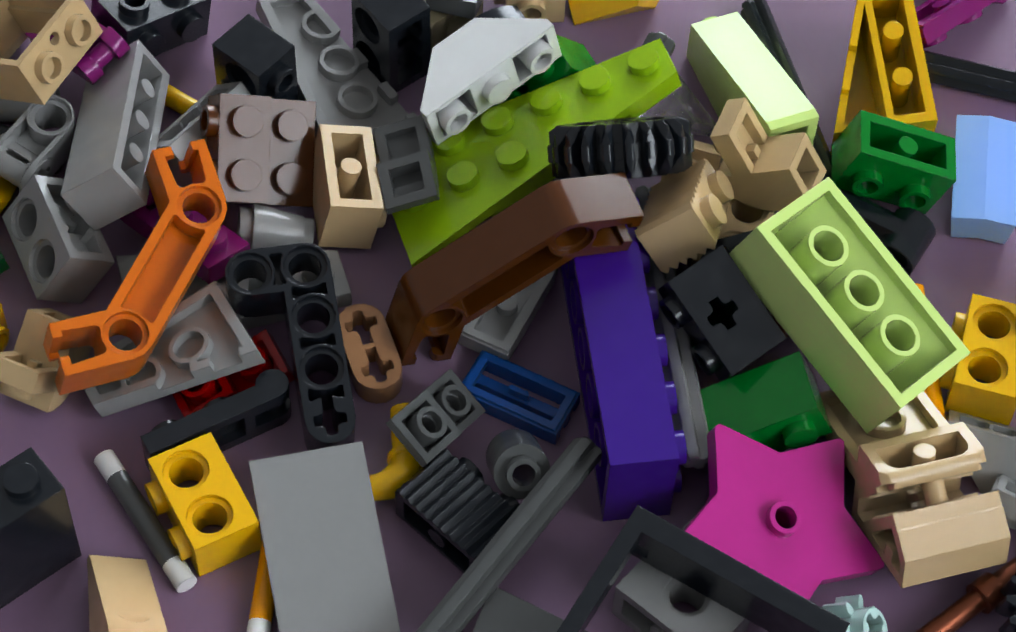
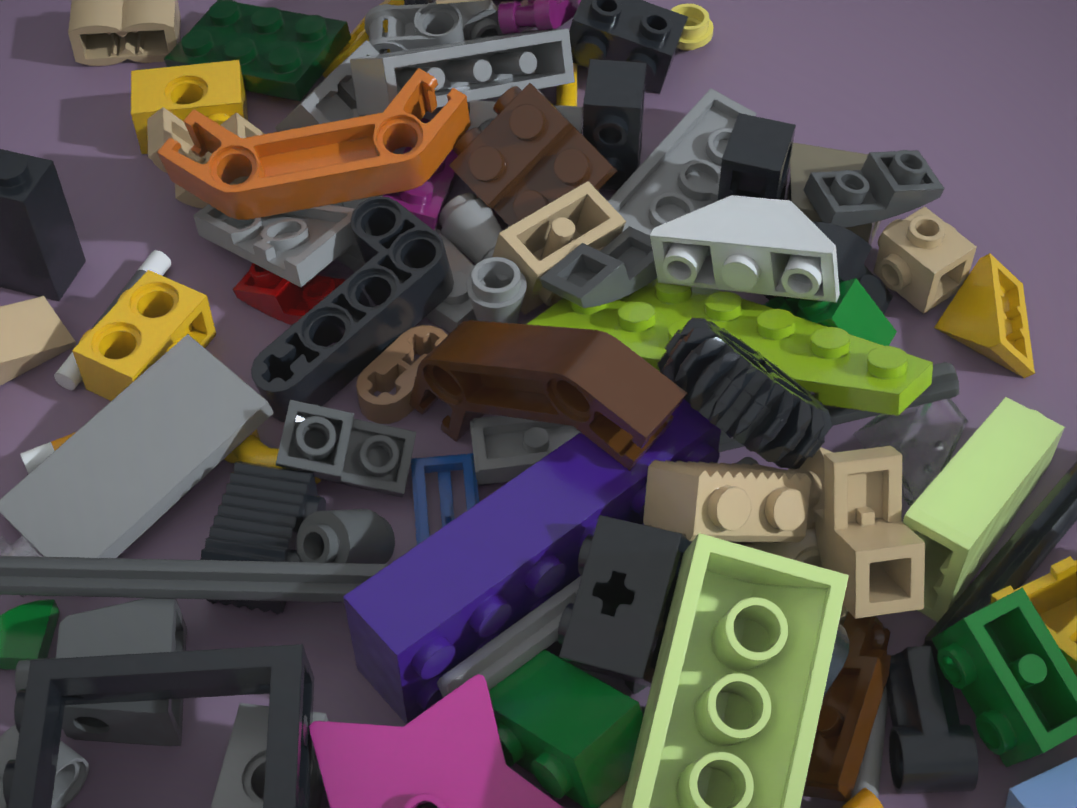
camera: 60 degrees right, 5 degrees down
(227, 418) = (235, 306): black plate -> none
(364, 248) = (496, 290): none -> light grey cone

